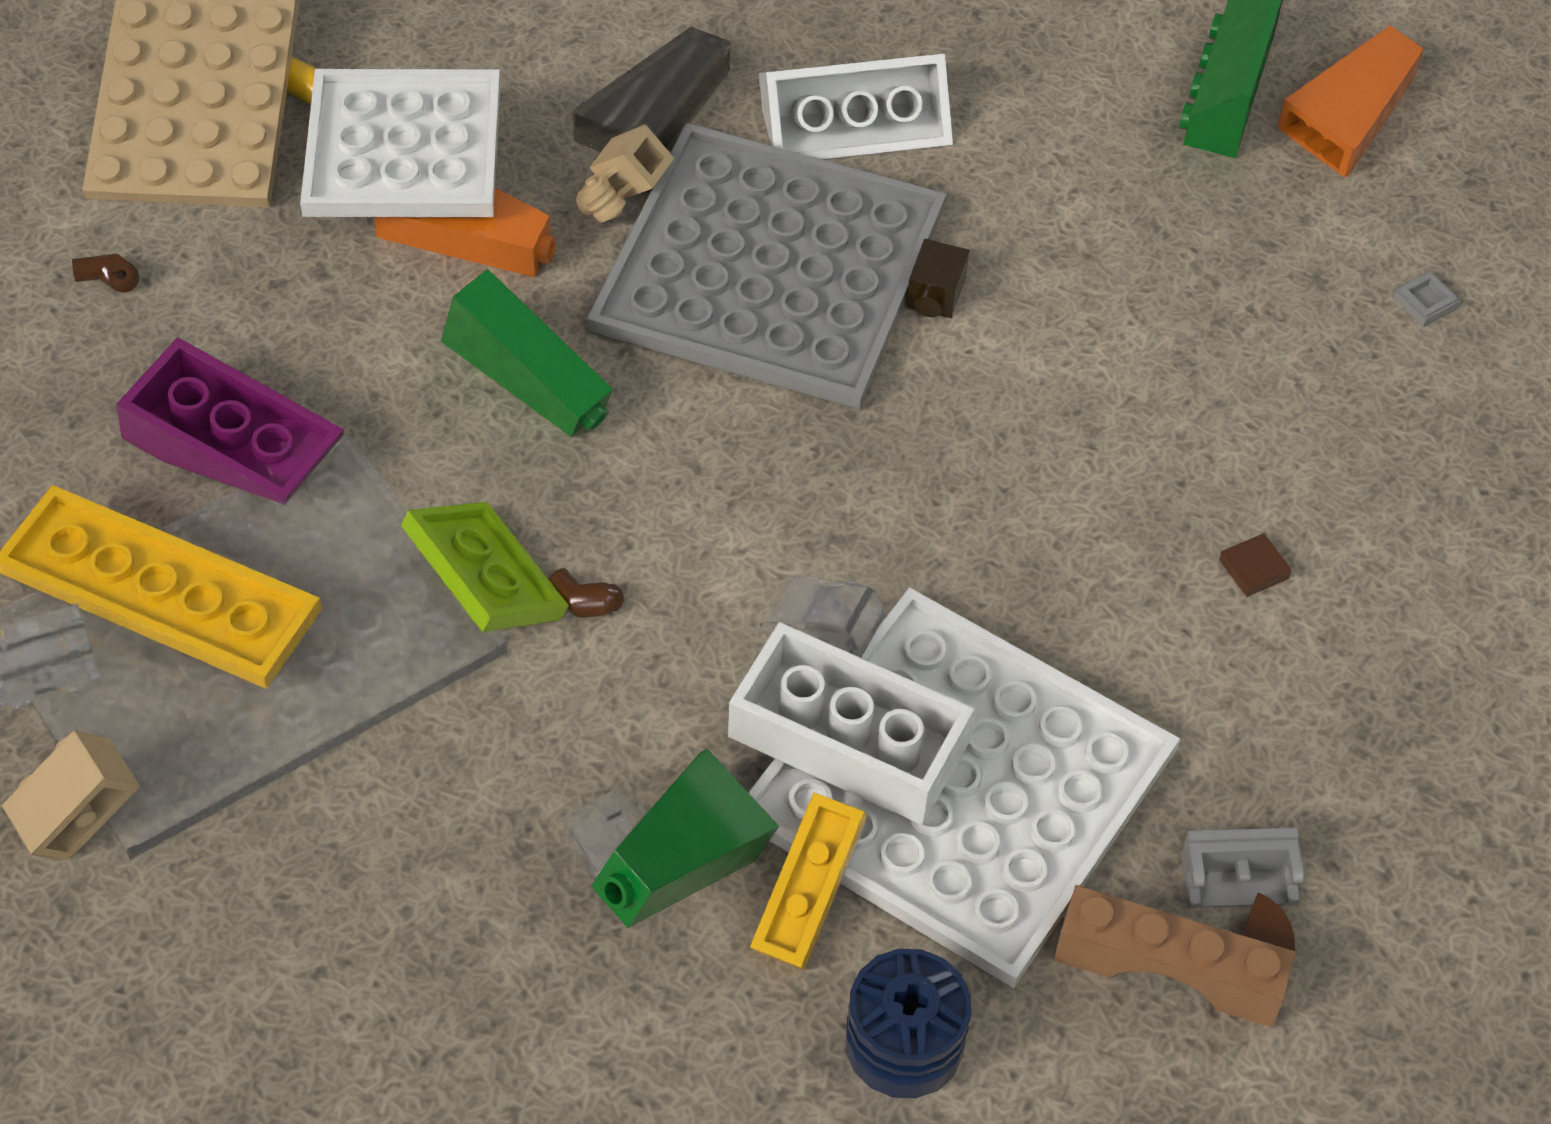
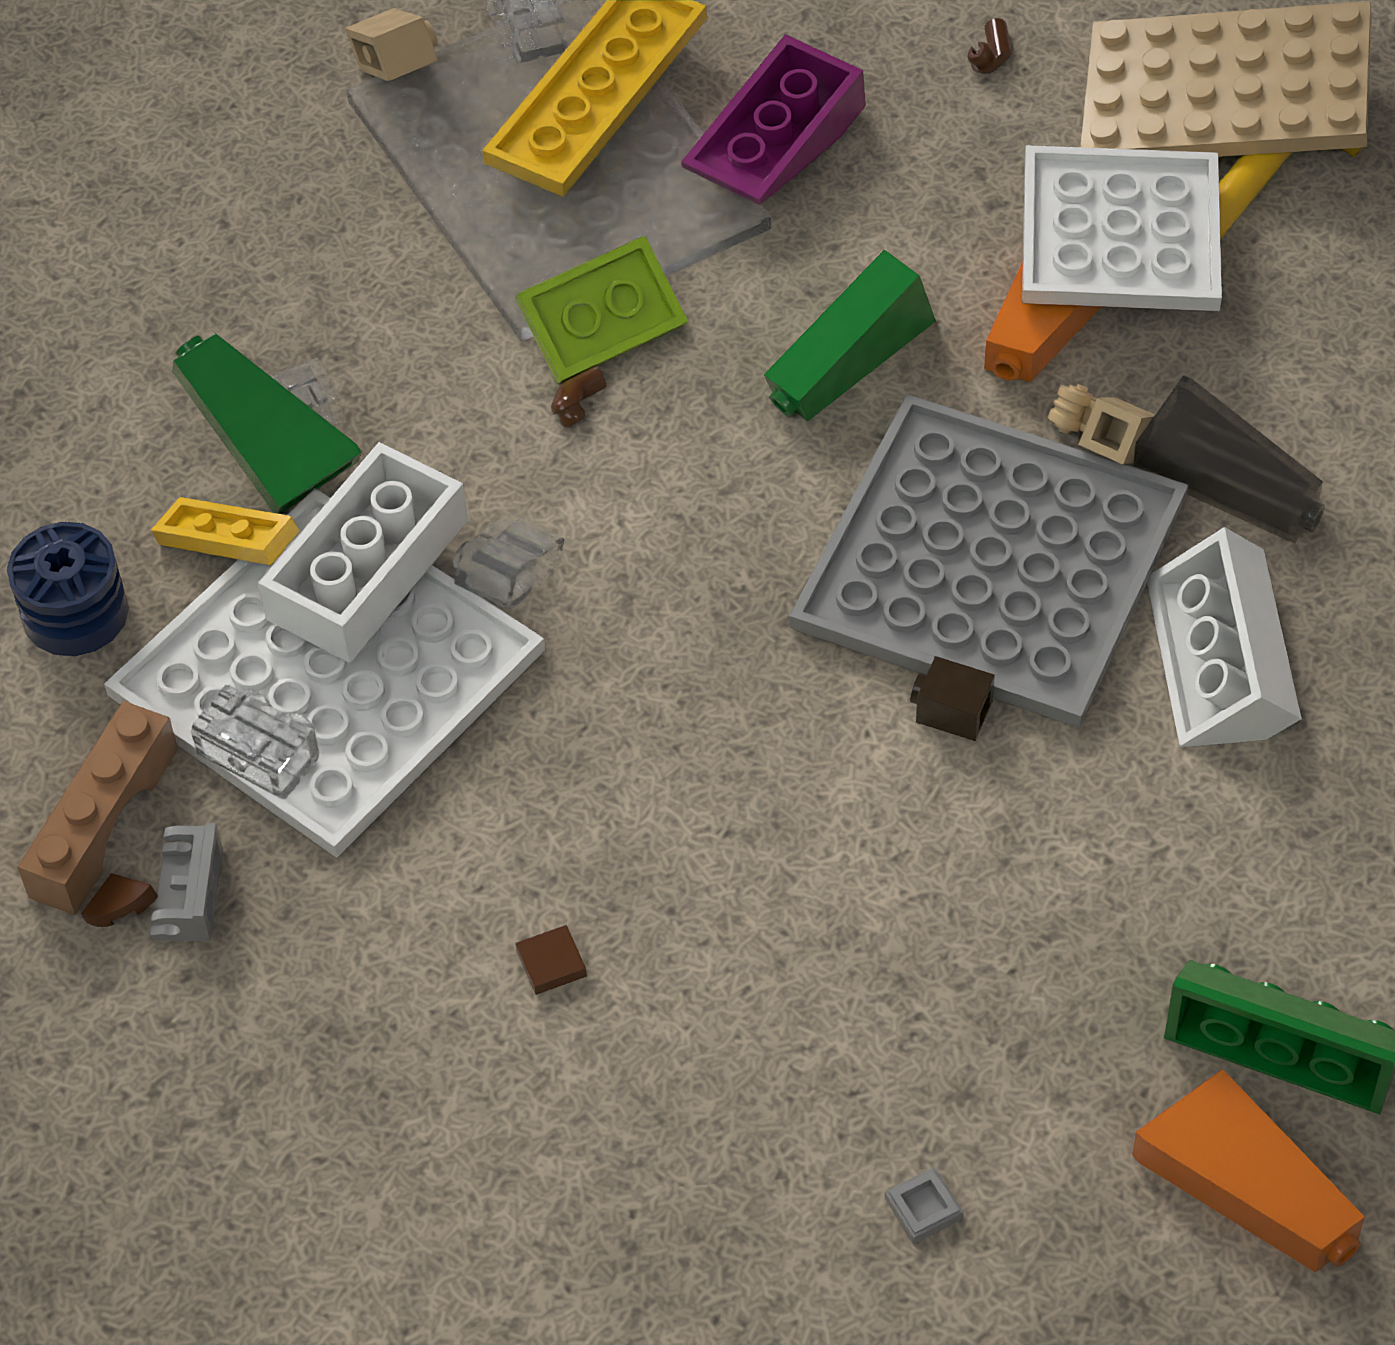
camera: 100 degrees right, 0 degrees up
(1088, 803) = (256, 740): none -> clear brick

